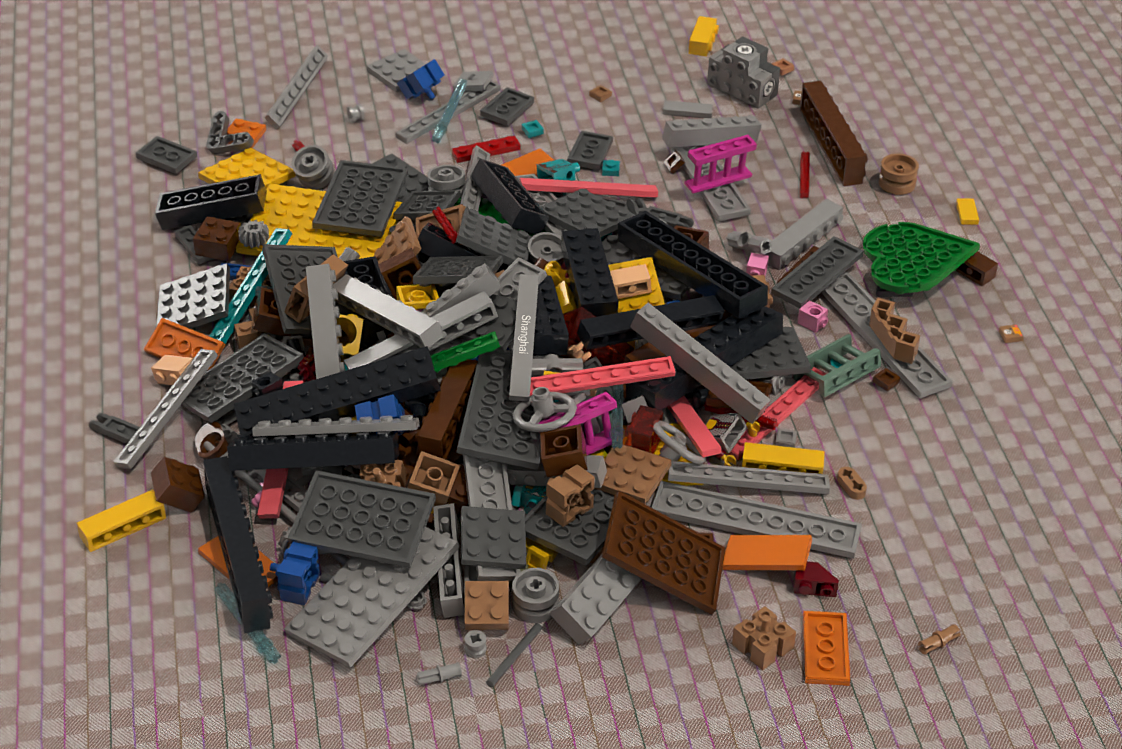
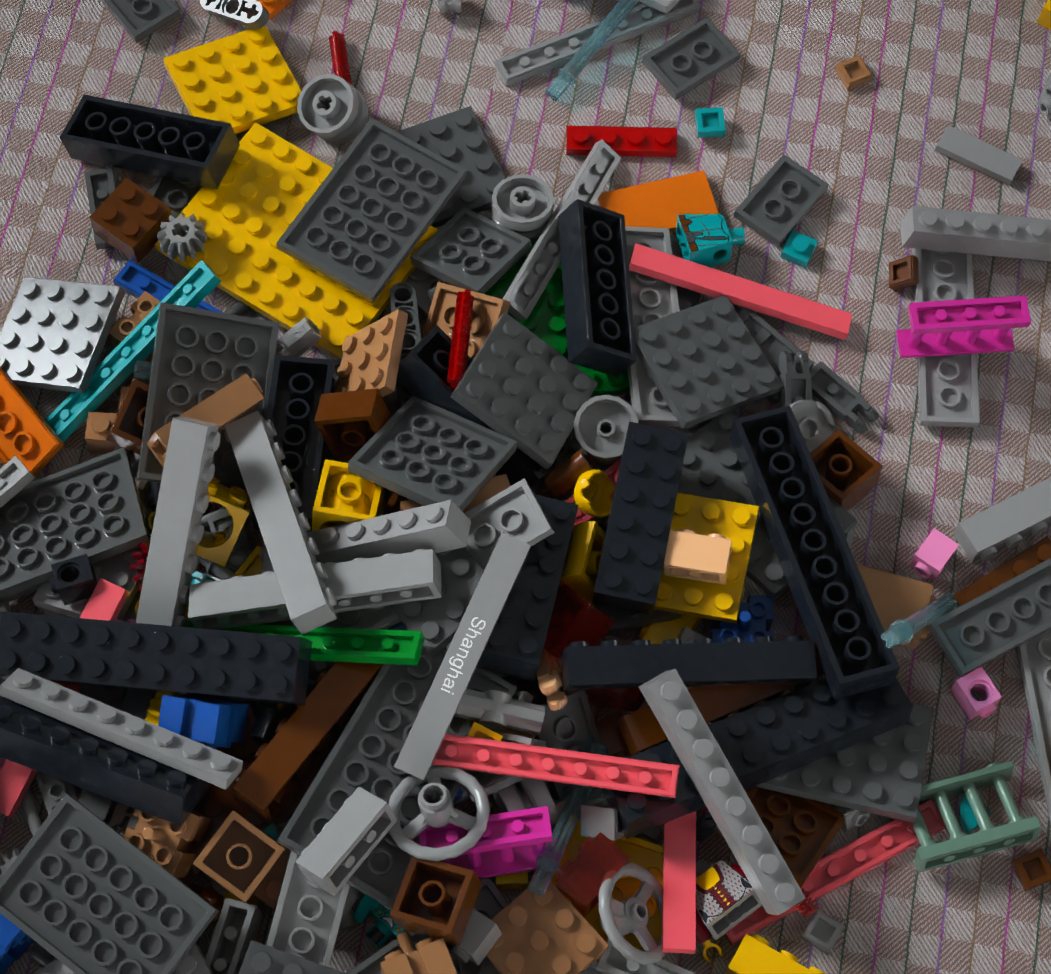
camera: 20 degrees right, 25 degrees up
(499, 432) = (346, 841): none -> light grey brick
(749, 242) = (940, 504): light grey piece -> none
(762, 275) = (902, 630): none -> clear light blue axle

